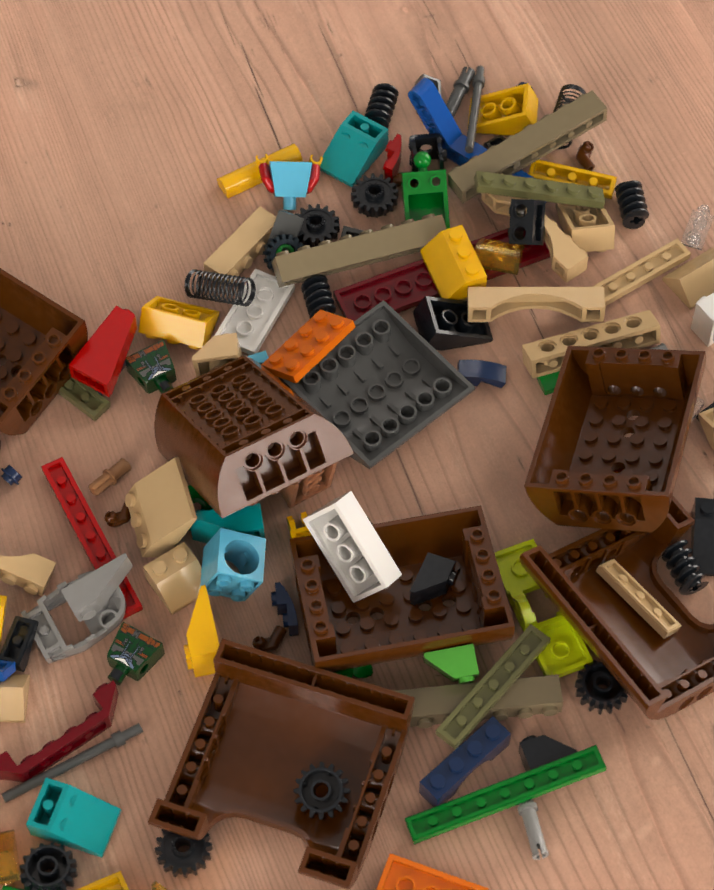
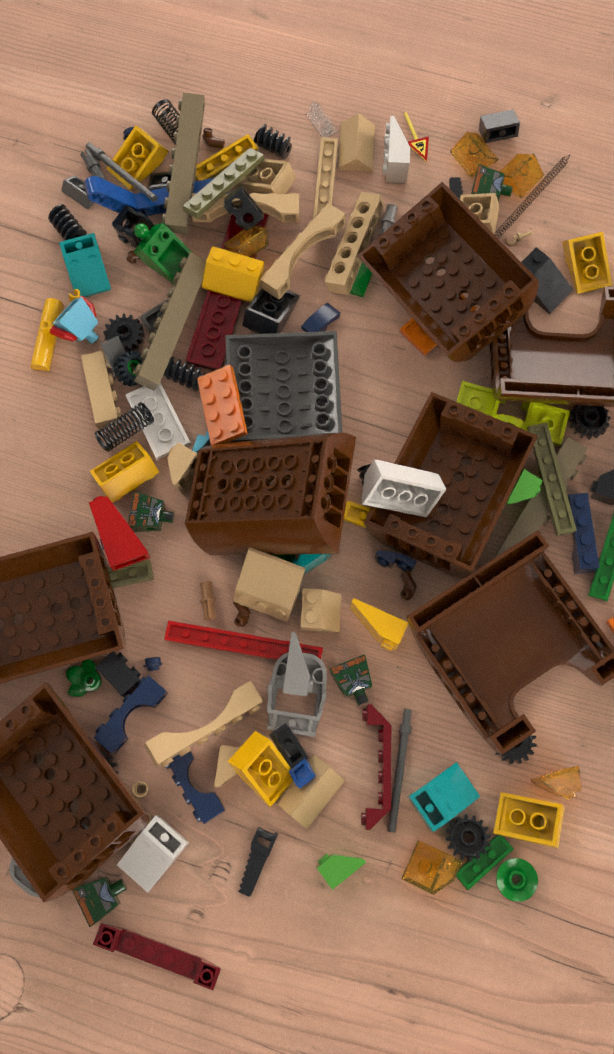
camera: 55 degrees left, 15 degrees up
(242, 550) = (358, 567): medium azure brick -> none
(334, 797) = (552, 634): black gear -> none
(374, 196) = (132, 290): black gear -> none
(393, 160) = (113, 247): red slope -> none
(433, 579) = (450, 457): black slope -> none
(638, 598) = (538, 354): tan tile -> none
(682, 568) = (550, 313): black piece -> none

